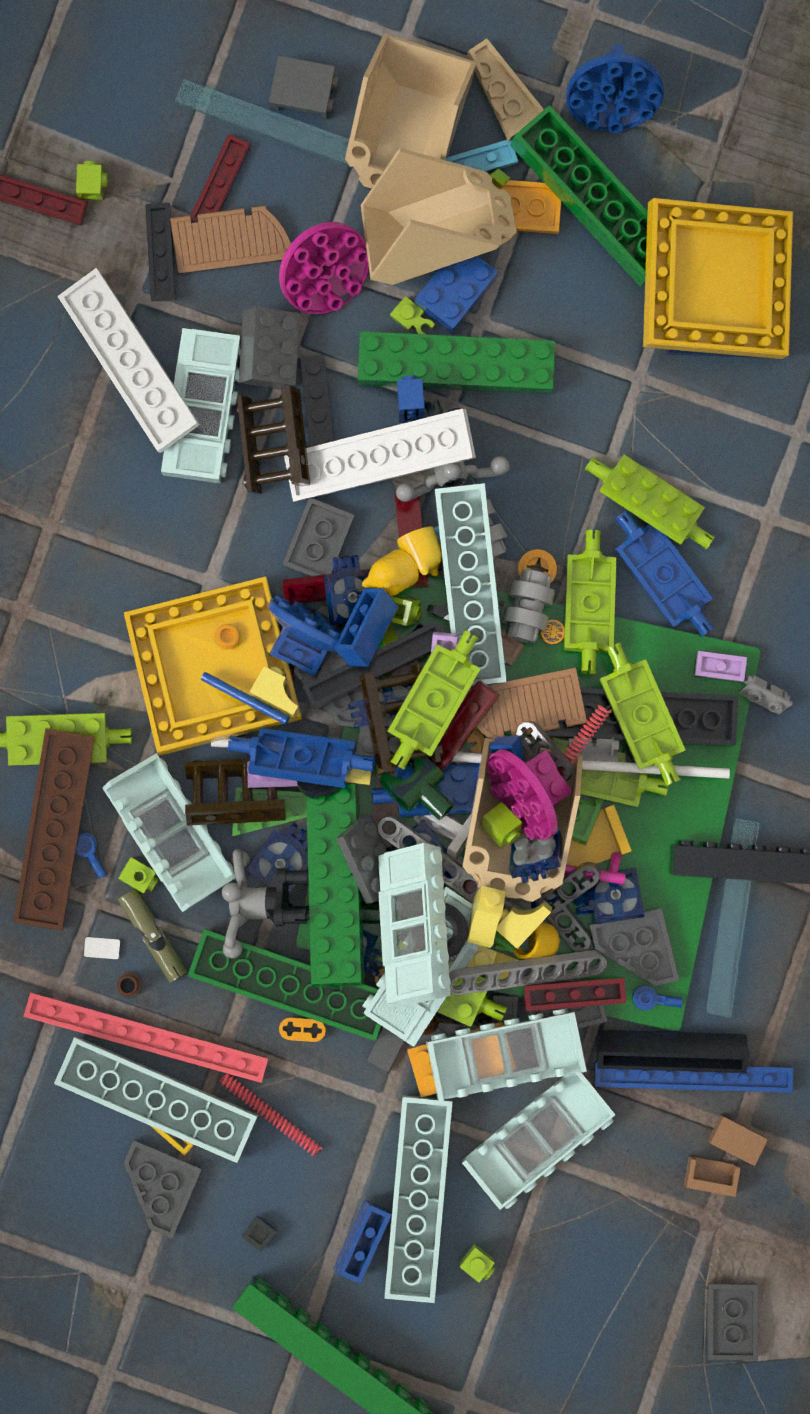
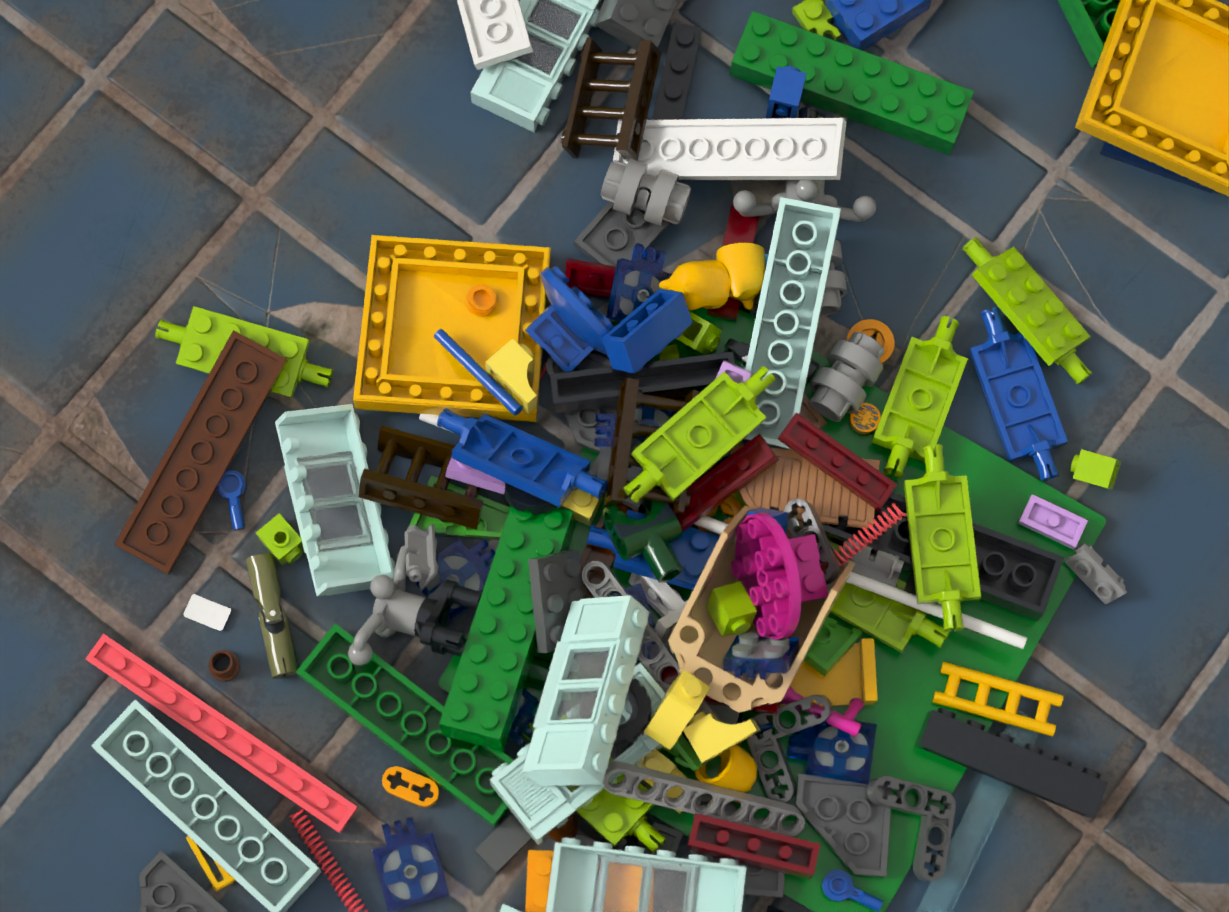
camera: 20 degrees right, 10 degrees down
(254, 862) = (423, 564): none -> light grey hinge
(309, 507) = (624, 186): none -> light grey piece
(322, 1090) = (409, 867): none -> clear blue piece
(544, 681) = (837, 461): none -> dark red tile
(698, 924) = (930, 818): none -> dark grey beam
(710, 805) = (1015, 691): none -> yellow bar
(740, 613) = (1095, 469): none -> lime brick

